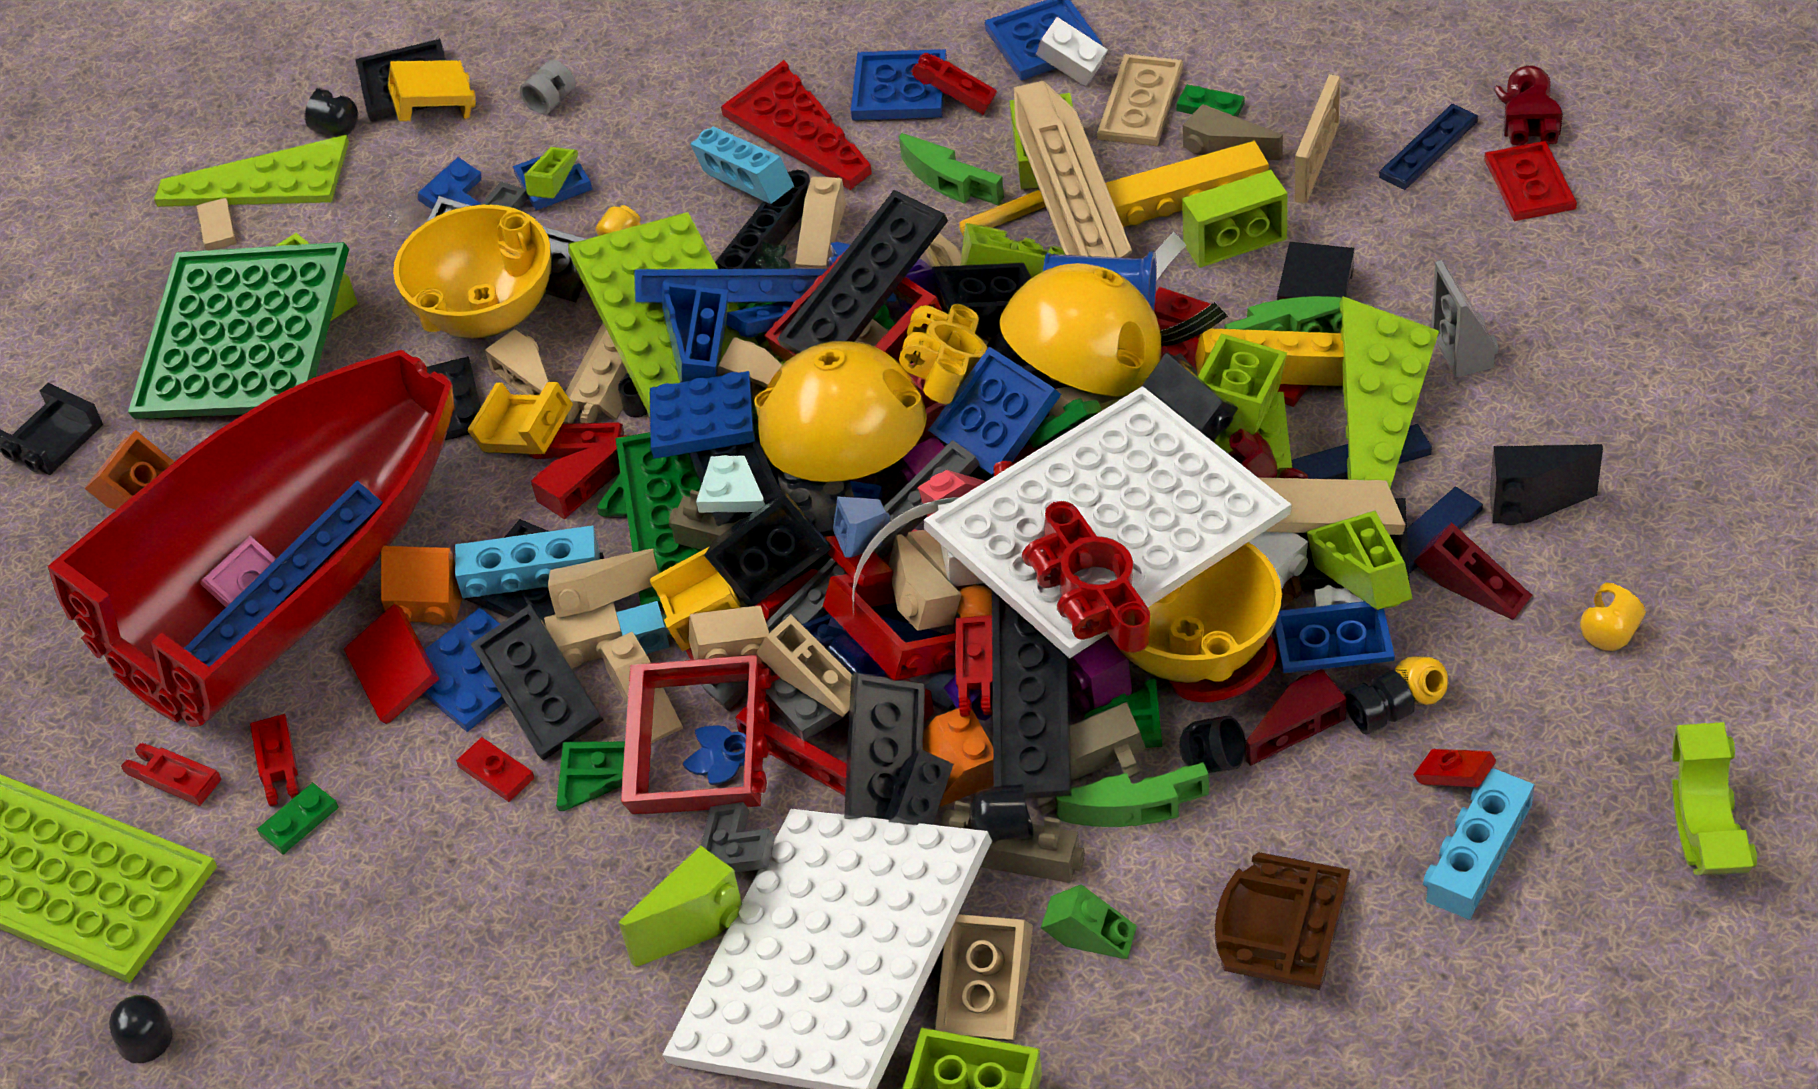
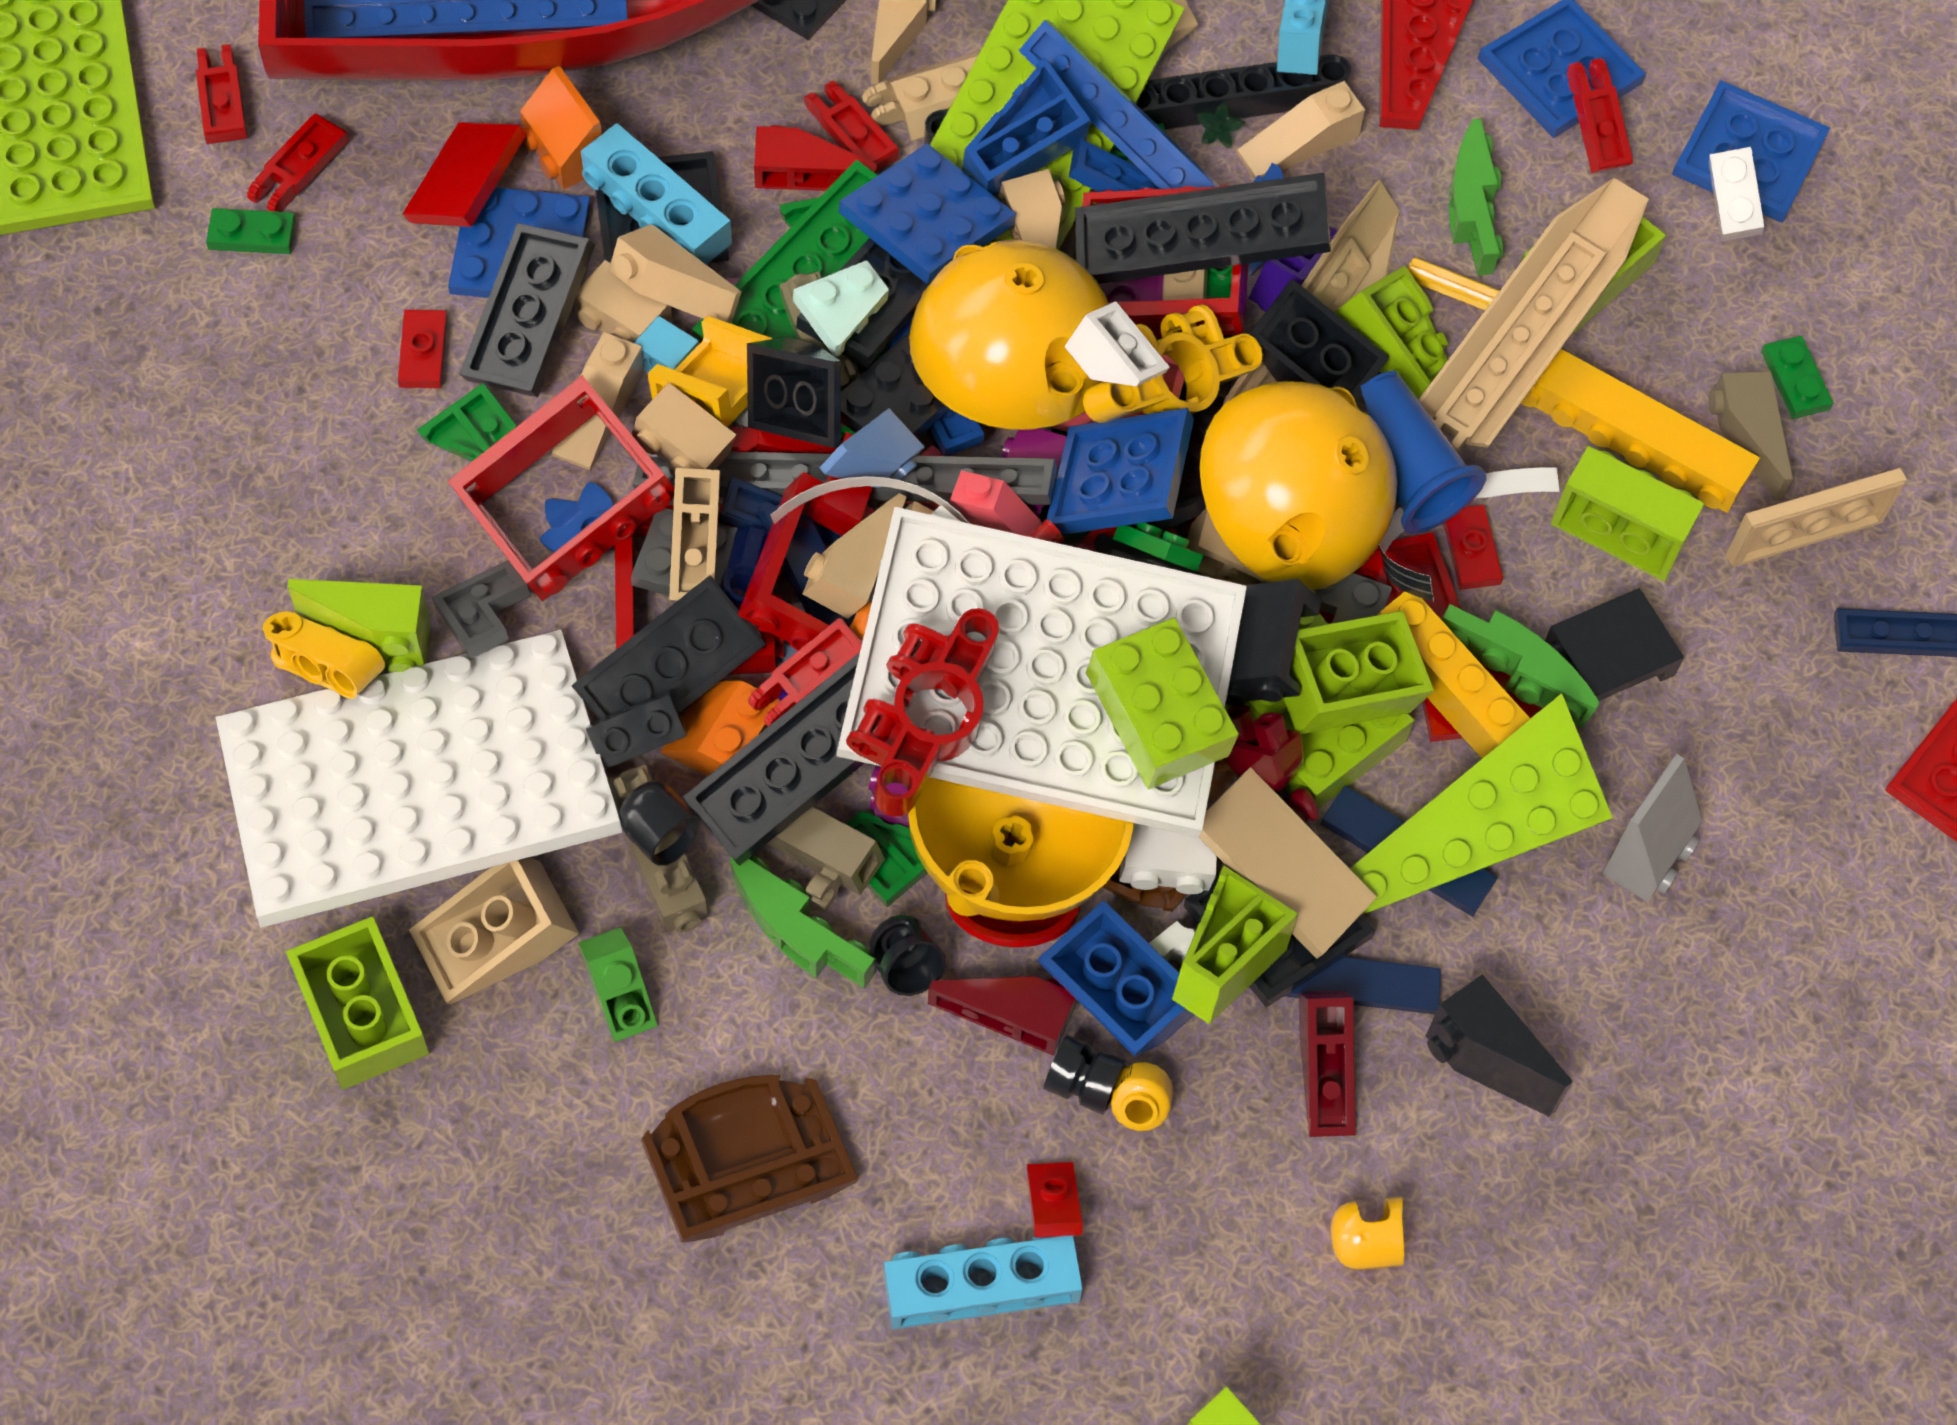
camera: 40 degrees right, 15 degrees up
(520, 421) = (826, 59): yellow panel -> none
(681, 953) = (322, 654): none -> yellow piece
(924, 346) = (1114, 348): none -> white slope
(1140, 100) = (1743, 306): tan tile -> none
(1192, 463) = (1161, 703): none -> lime brick

